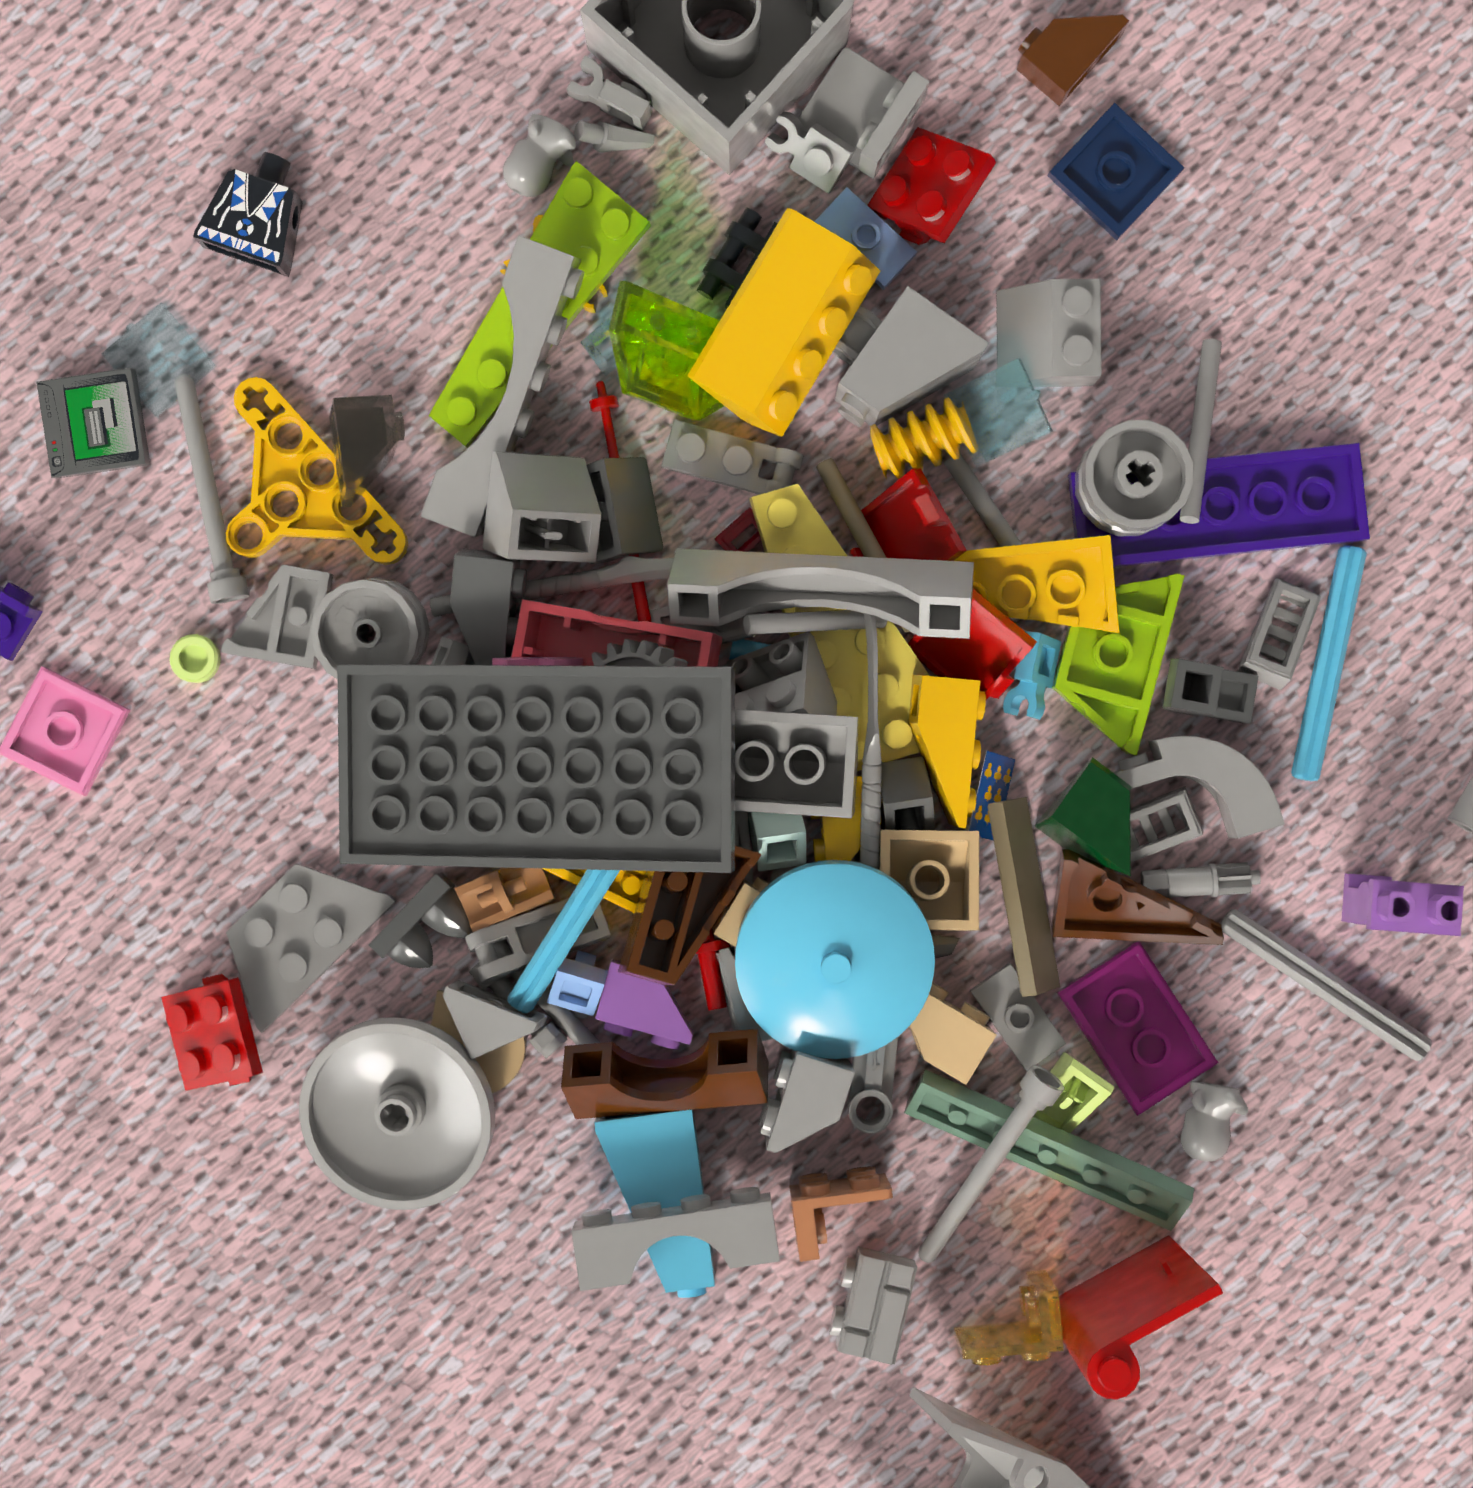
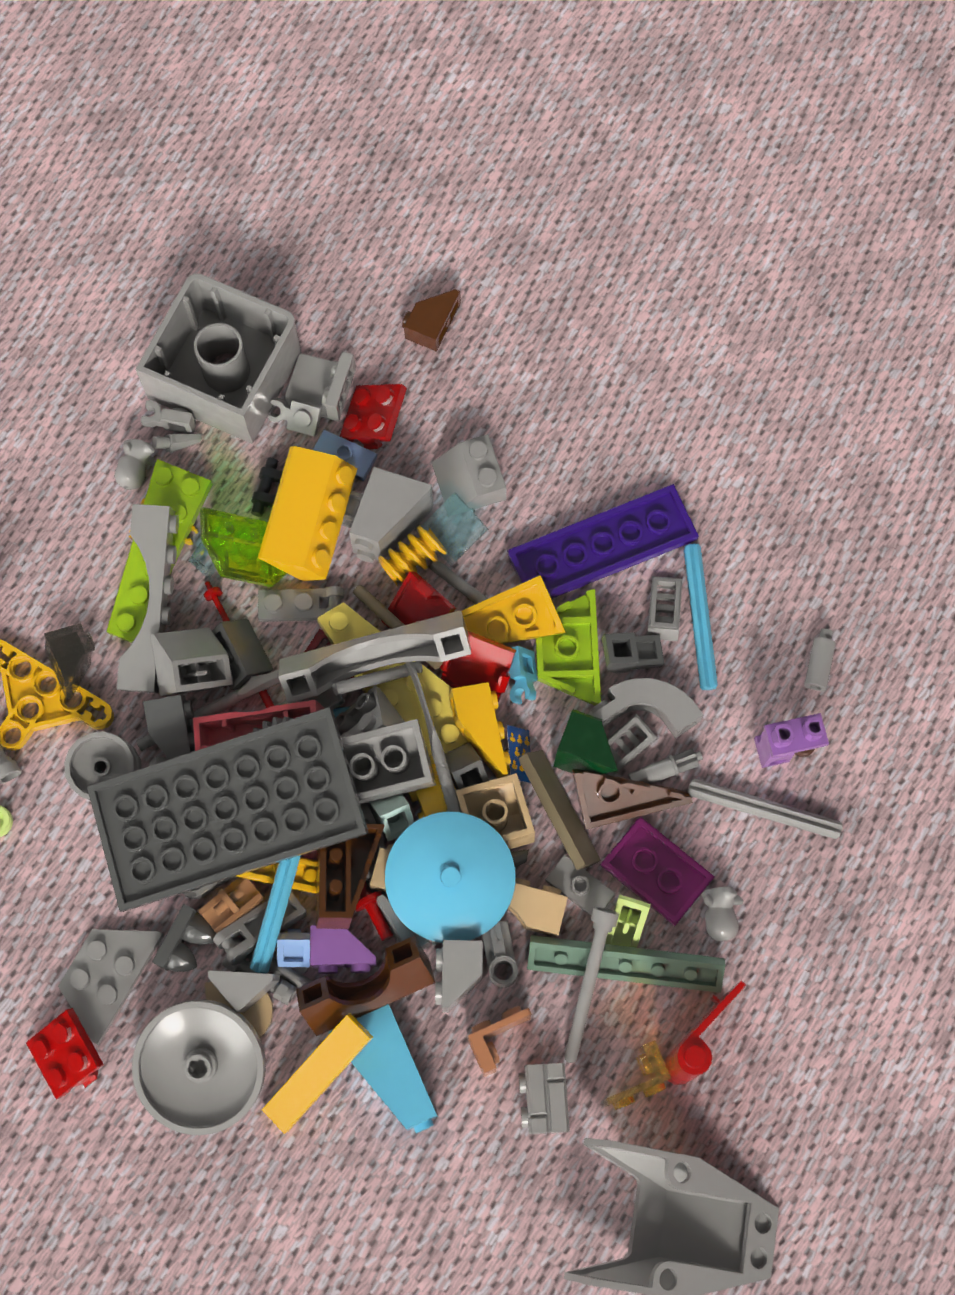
camera: 15 degrees left, 15 degrees down
(282, 619) = (45, 780): light grey wing -> none
(563, 1174) = (317, 1073): none -> yellow tile
(736, 1227) = (361, 1105): light grey arch -> none
(1115, 171) = (480, 377): dark blue tile -> none
(1158, 462) = (544, 539): light grey wheel -> none
(1202, 426) = (577, 504): light grey bar -> none

